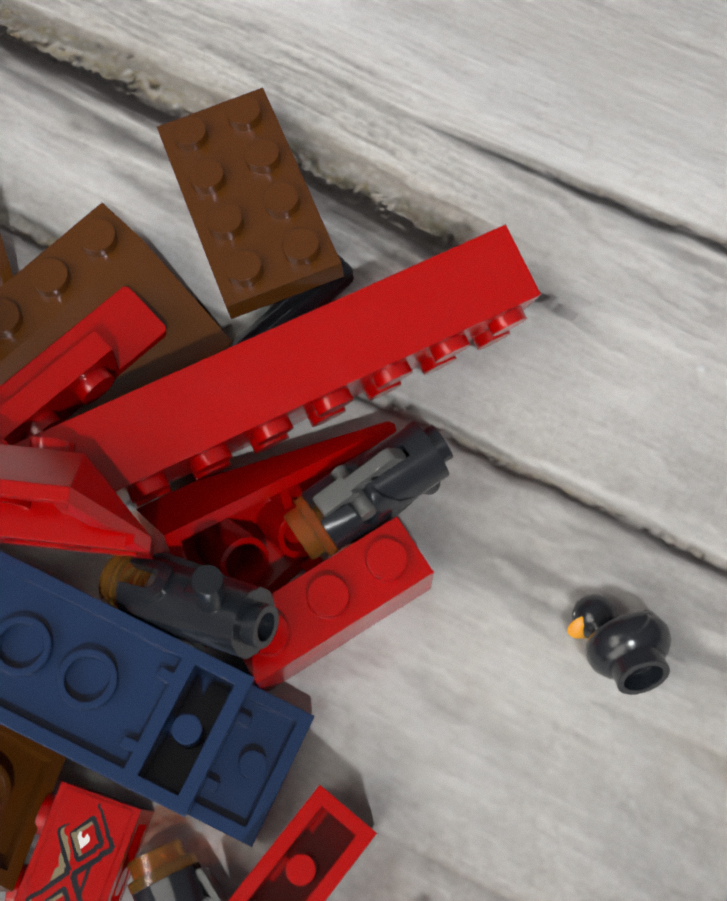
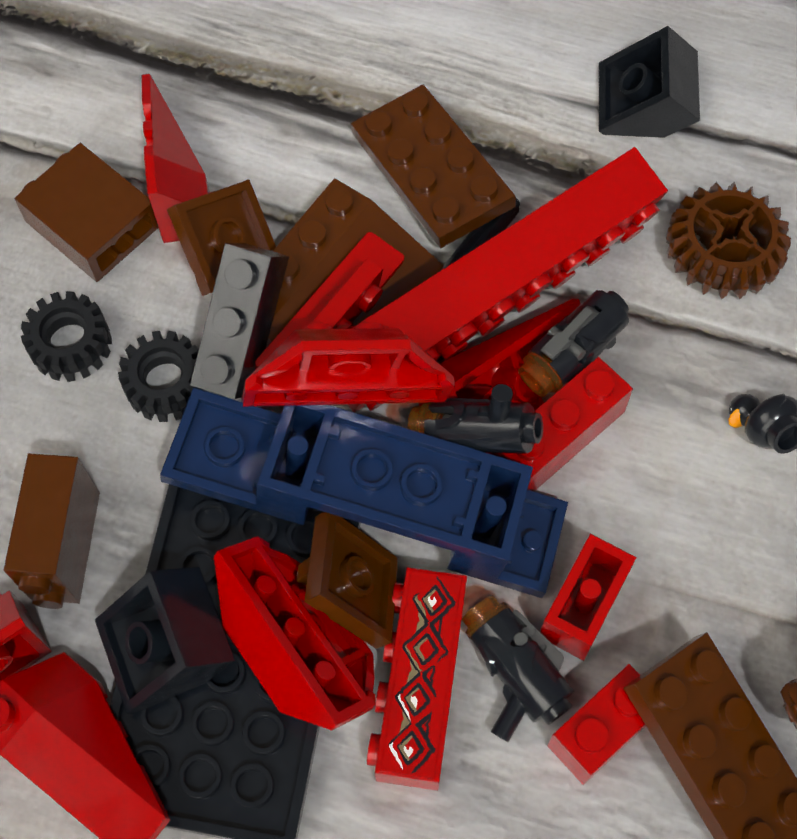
camera: 10 degrees left, 5 degrees down
(564, 136) = (650, 87): none -> black slope
(622, 334) = (734, 262): none -> reddish brown gear

